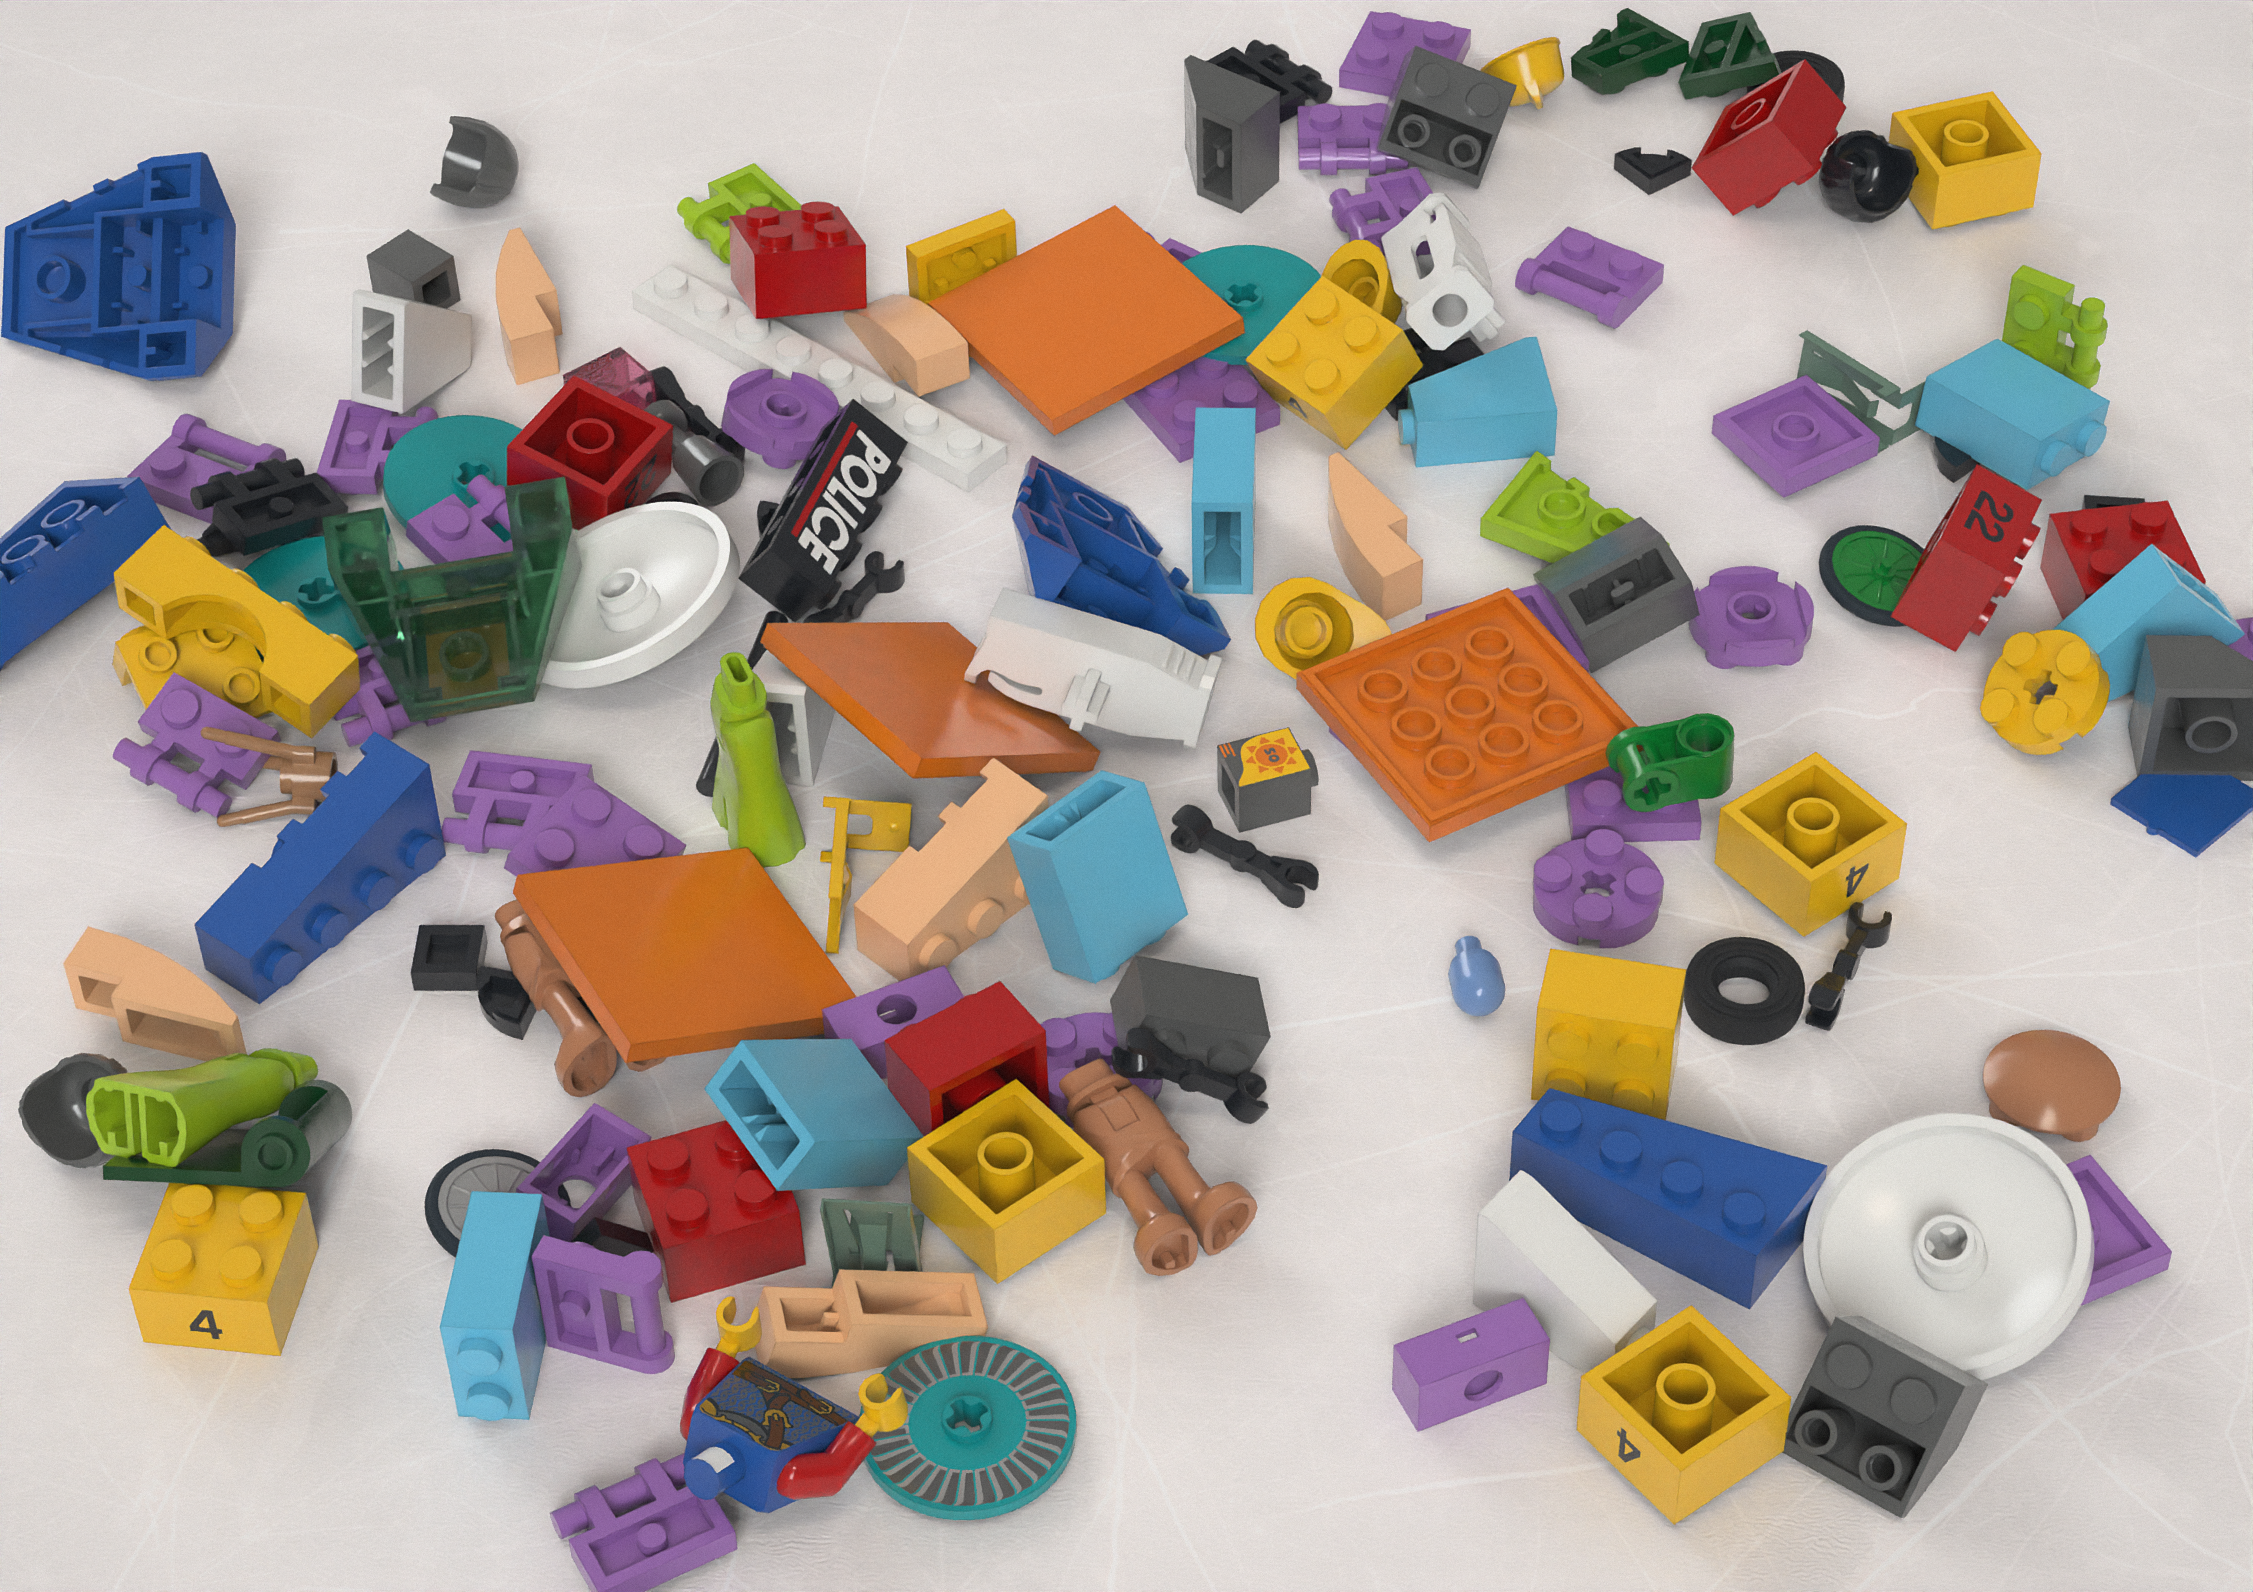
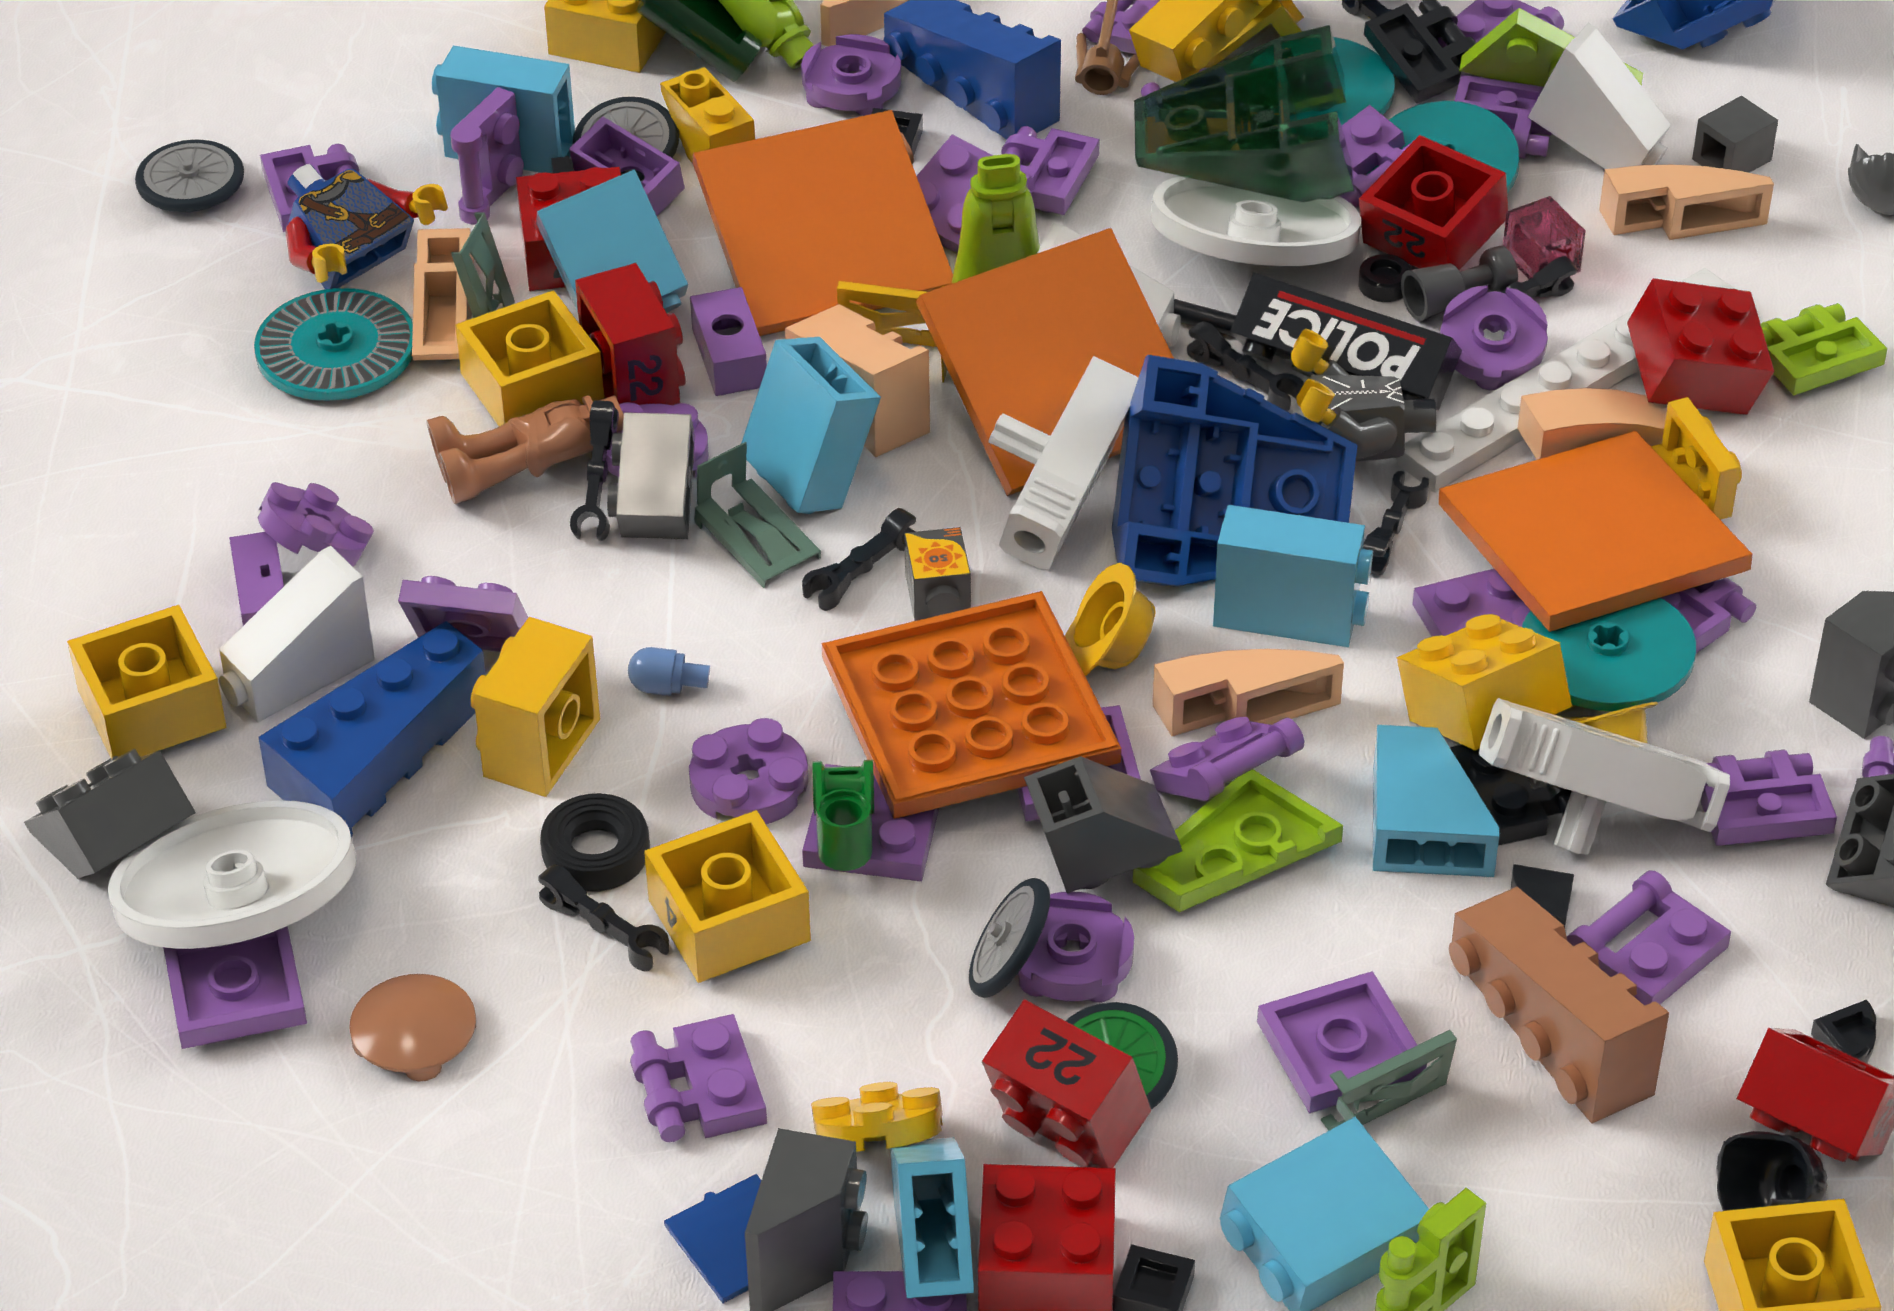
camera: 100 degrees right, 0 degrees up
(327, 383) = (1521, 51): none -> lime wing
(341, 1036) = (831, 84): none -> medium lavender plate
(487, 1102) = (705, 112): none -> yellow slope
(948, 487) = (1358, 407): none -> dark grey torso
(1108, 476) = (1403, 499): none -> black piece
(1247, 925) = (769, 536): none -> sand green piece
(1355, 1321) = (312, 520): none -> medium lavender plate
(1468, 545) = (1239, 746): none -> medium lavender plate
(1486, 1125) = (482, 614): none -> medium lavender plate
(1561, 337) = (1546, 887): none -> black tile
(1709, 297) = (1561, 1004): none -> nougat wedge
(1786, 633) = (1009, 937): none -> wheel
(2011, 842) = (718, 1076): none -> medium lavender plate

